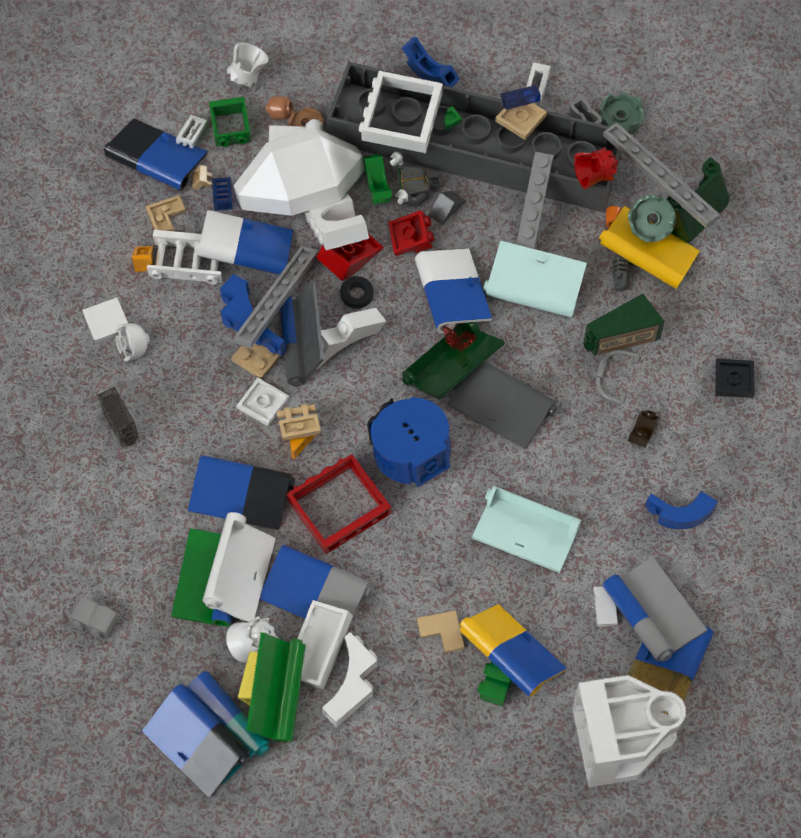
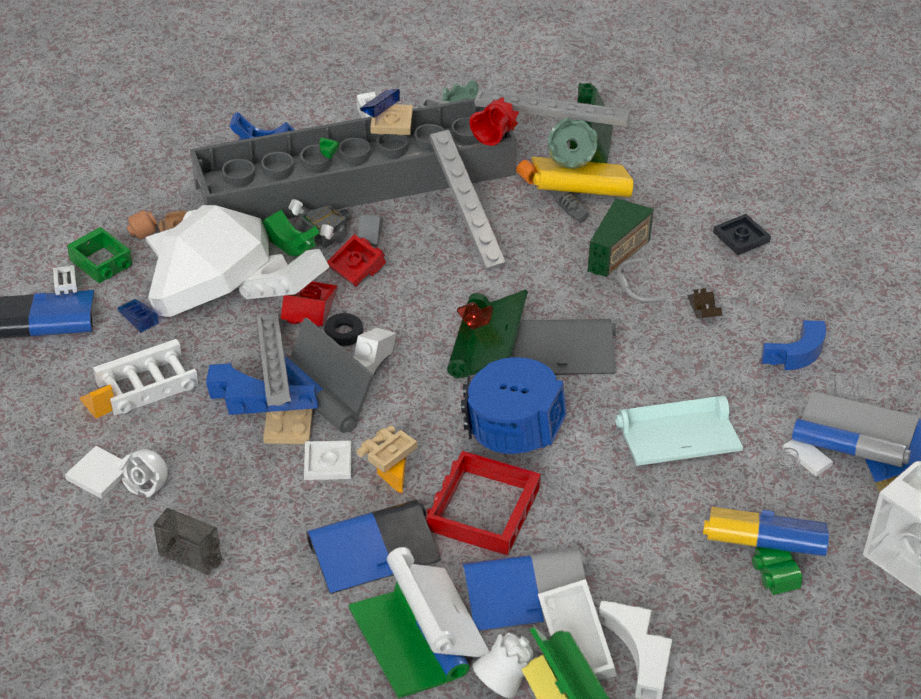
camera: 35 degrees left, 20 degrees down
(161, 211) = (87, 355): tan tile -> none
(200, 177) = (105, 310): tan tile -> none
(244, 242) = (199, 338): door -> none
(246, 64) = (83, 203): white hat -> none
(398, 139) = (282, 181): white window -> none
(446, 626) = (682, 550): tan tile -> none
(452, 287) = (433, 282): door -> none
(535, 284) = (506, 239): light aqua door -> none

